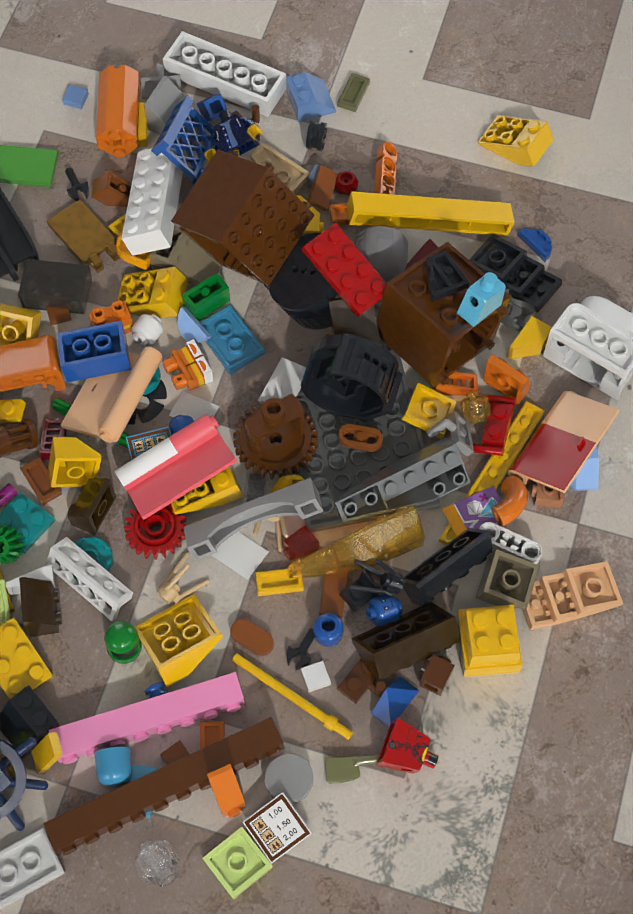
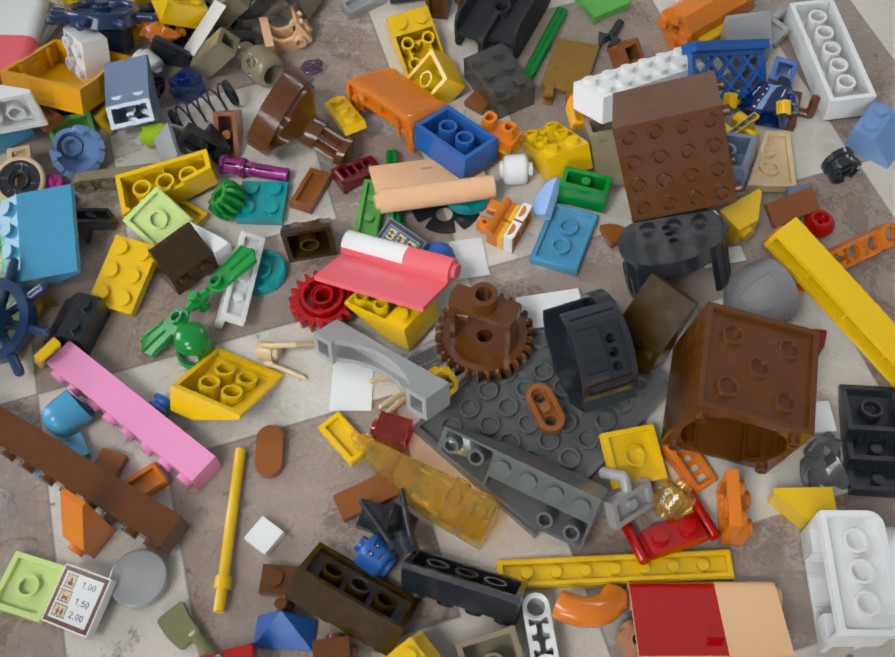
camera: 60 degrees right, 5 degrees down
(41, 230) = (545, 42): none -> green axle
(72, 462) = (332, 193): yellow slope -> none
(83, 574) = (164, 331): none -> green piece
(110, 457) = (368, 218): none -> bright green tile
(253, 305) = (611, 233): none -> dark orange tile
(302, 649) = (284, 505): black bar -> none
(328, 629) = (316, 513): blue head -> none
(346, 269) = (695, 259): red plate -> none
(444, 276) = (767, 349): black wing -> none
(472, 510) = (551, 574): sticker -> none
(487, 293) = (773, 401): medium azure torso -> none

